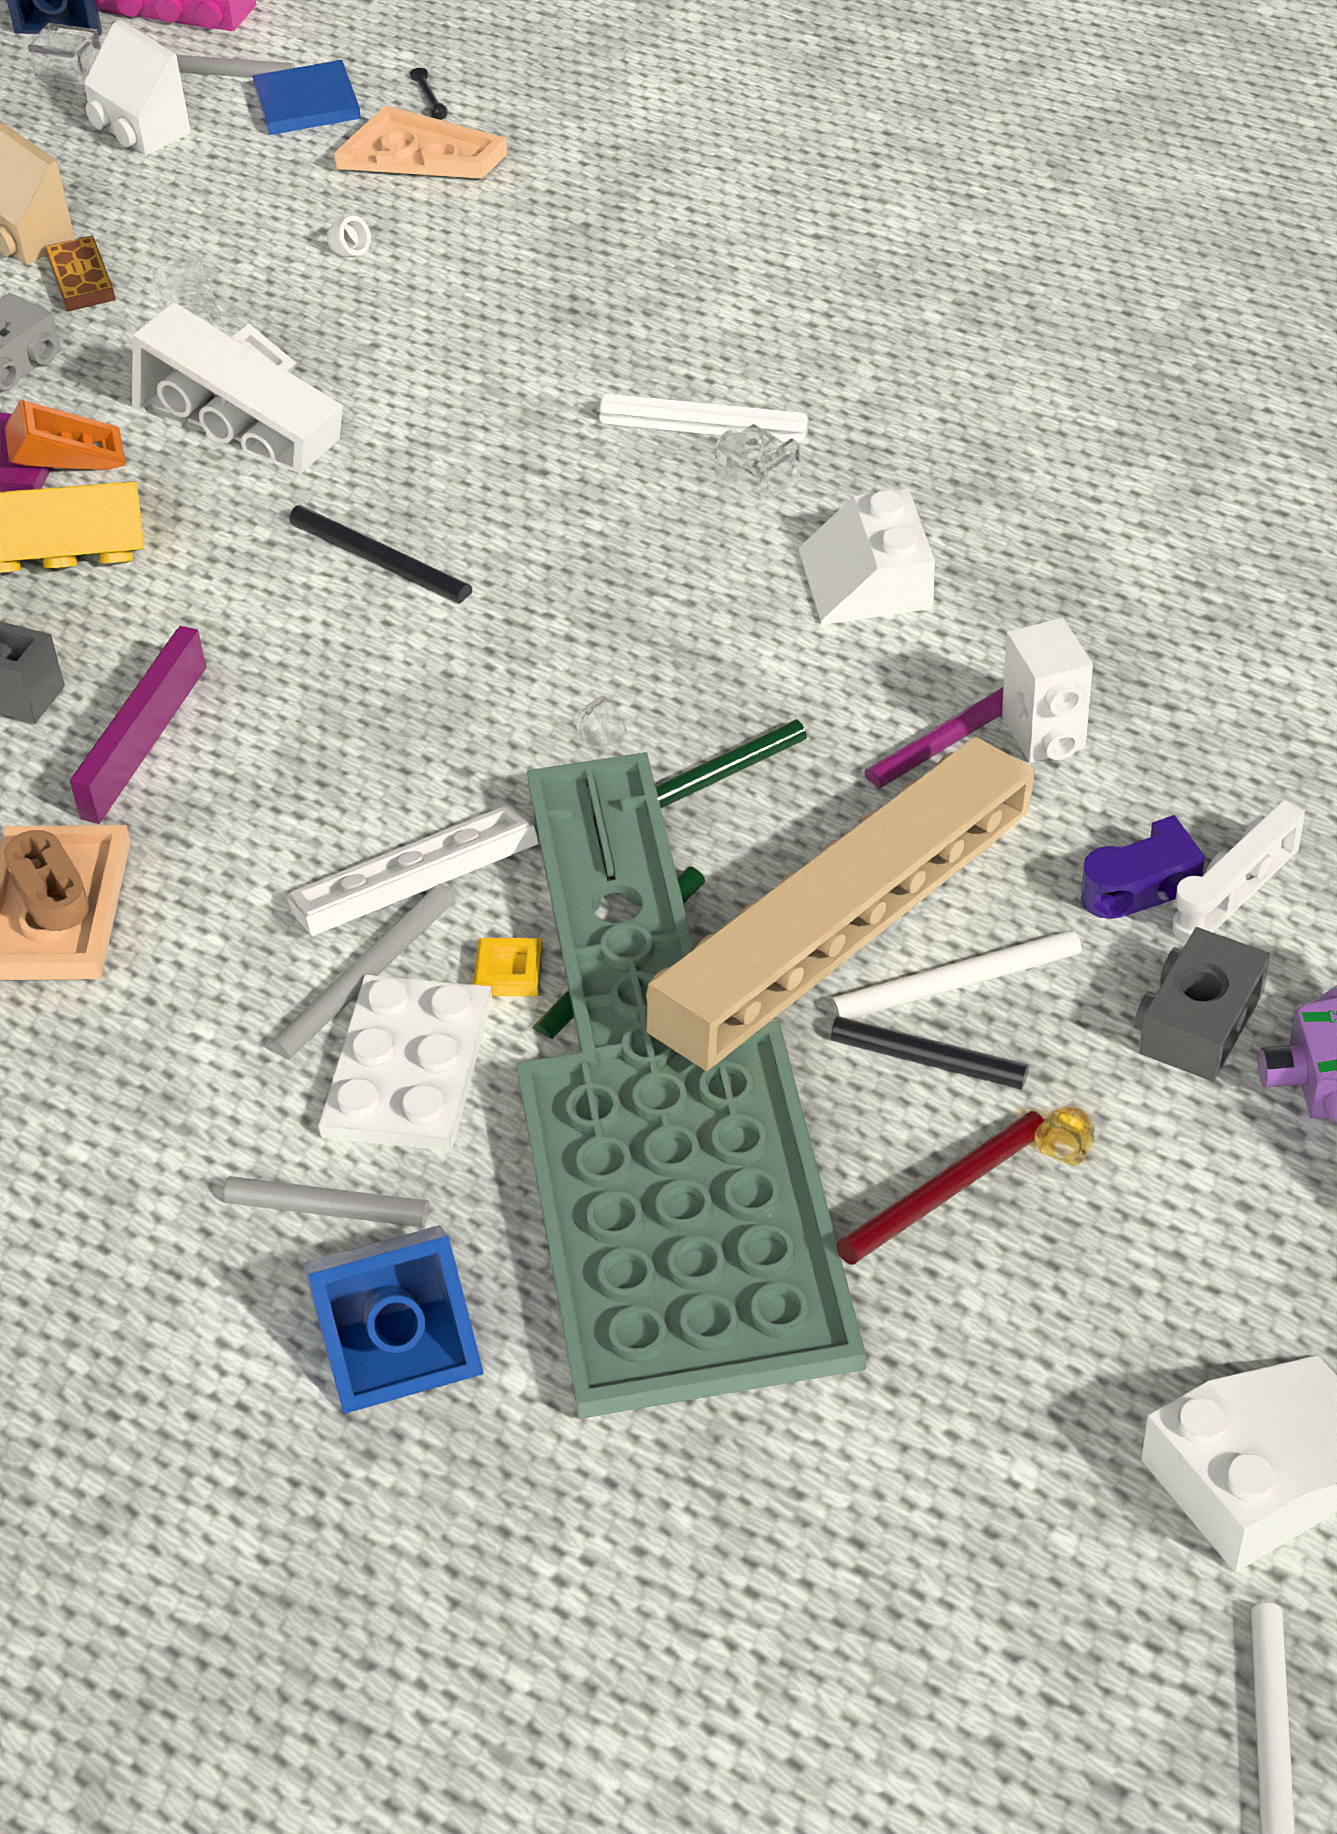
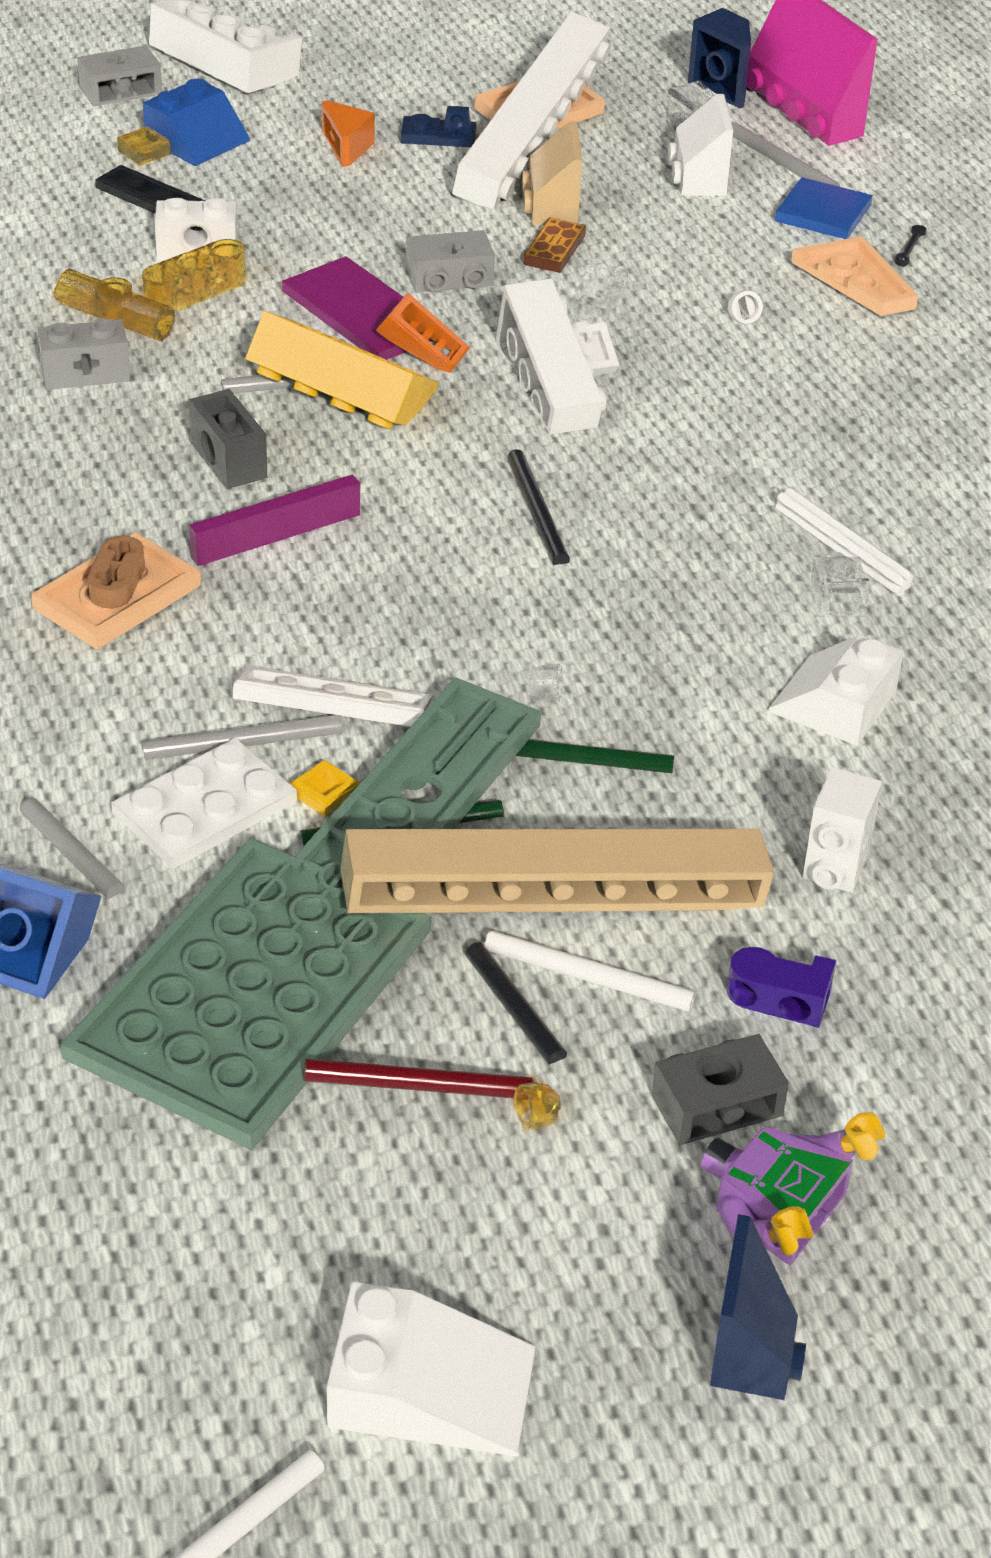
camera: 35 degrees right, 5 degrees down
(936, 740) = (767, 824): magenta bar -> none
(1238, 873) = (846, 1027): white plate -> none

